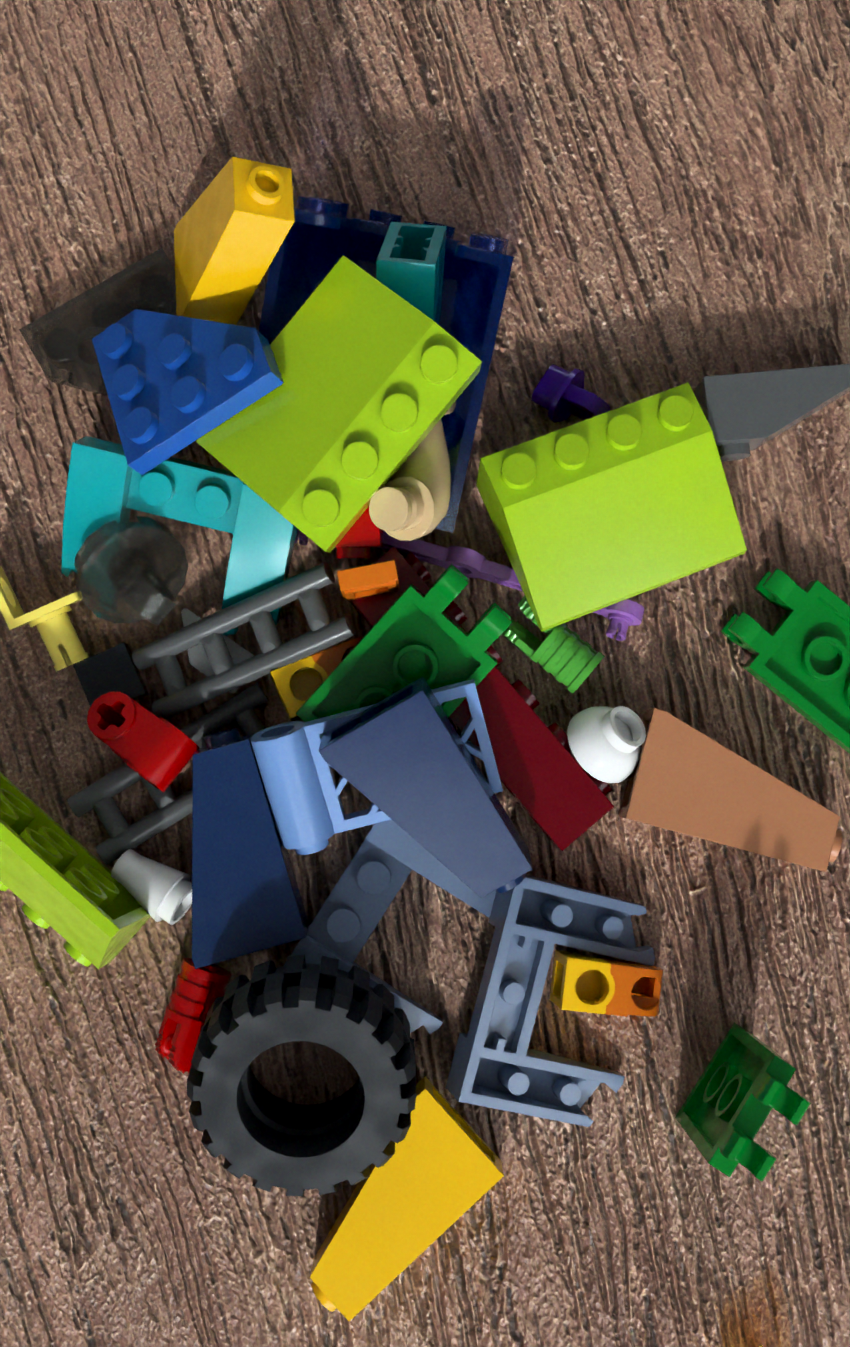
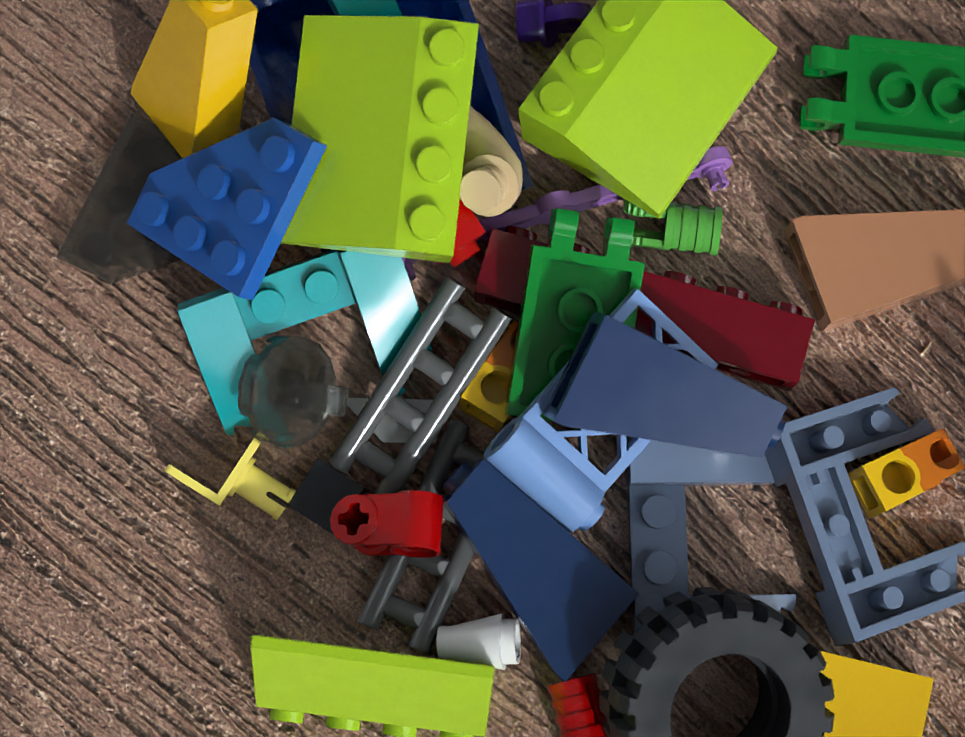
camera: 35 degrees left, 5 degrees down
(368, 580) = (494, 265): orange tile -> none
(607, 741) = (772, 272): white piece -> none

